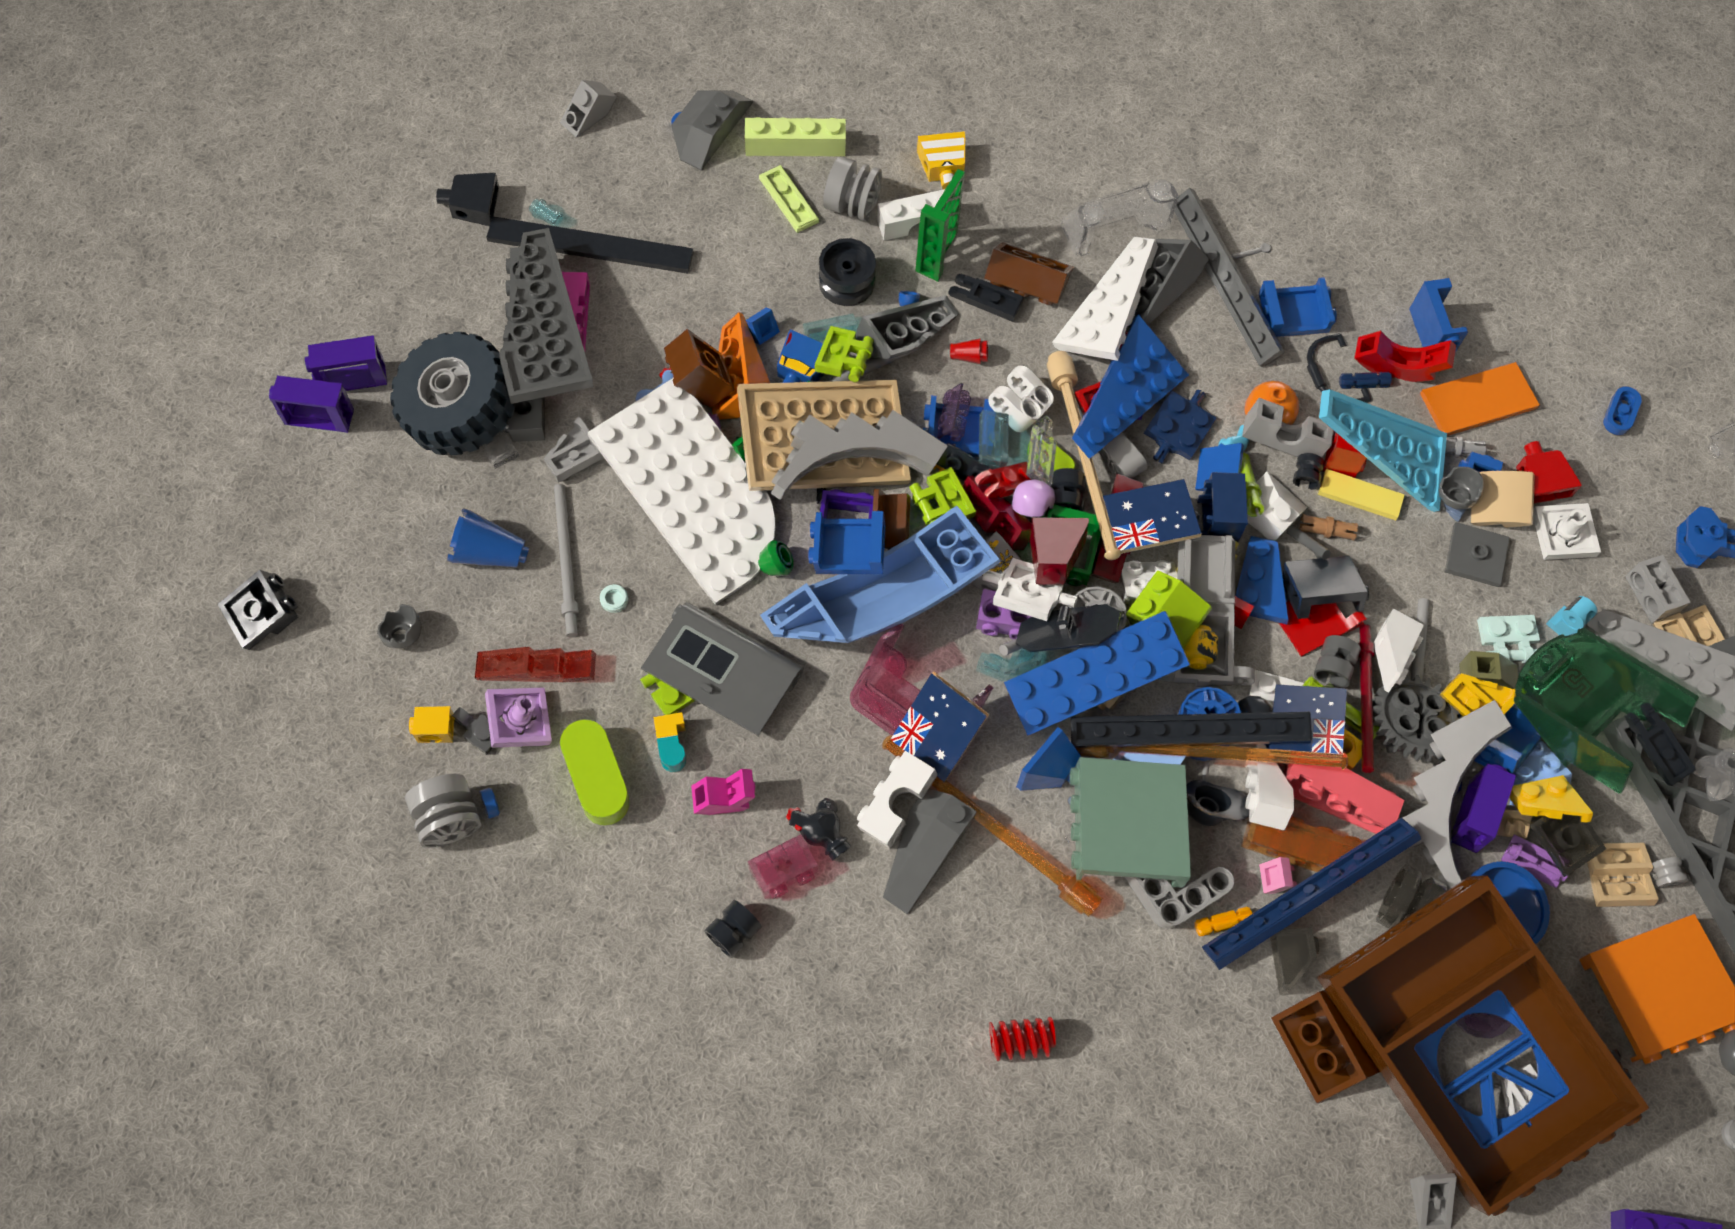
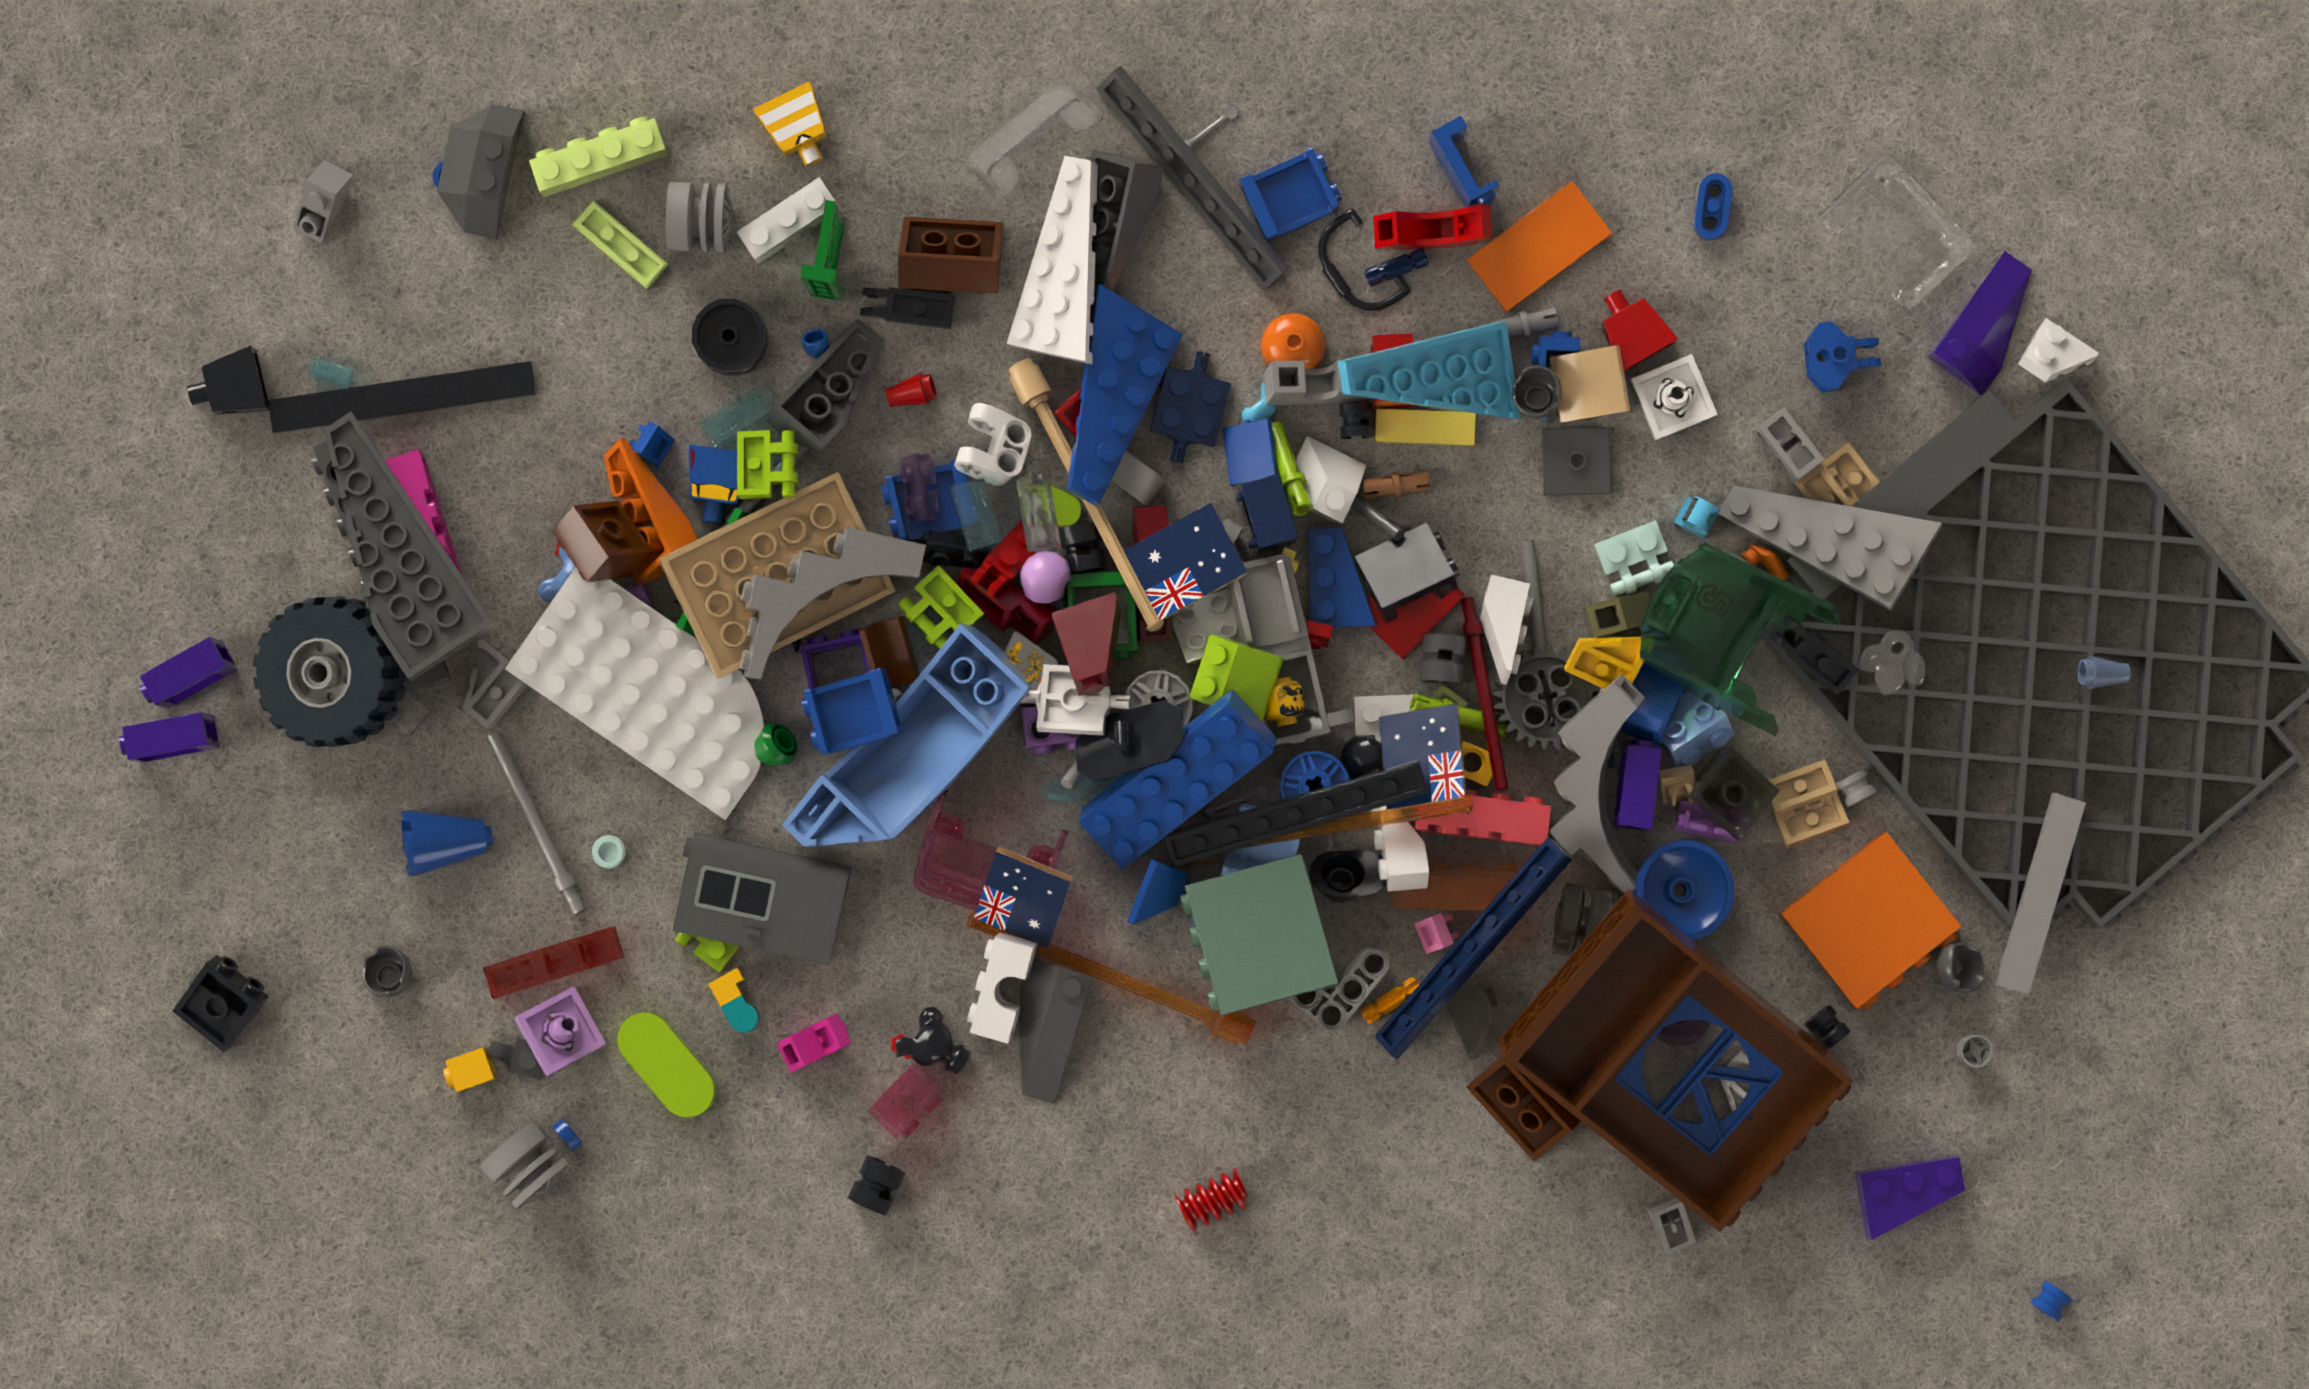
camera: 10 degrees left, 20 degrees up
(1549, 798) = (1704, 759): yellow wing -> none

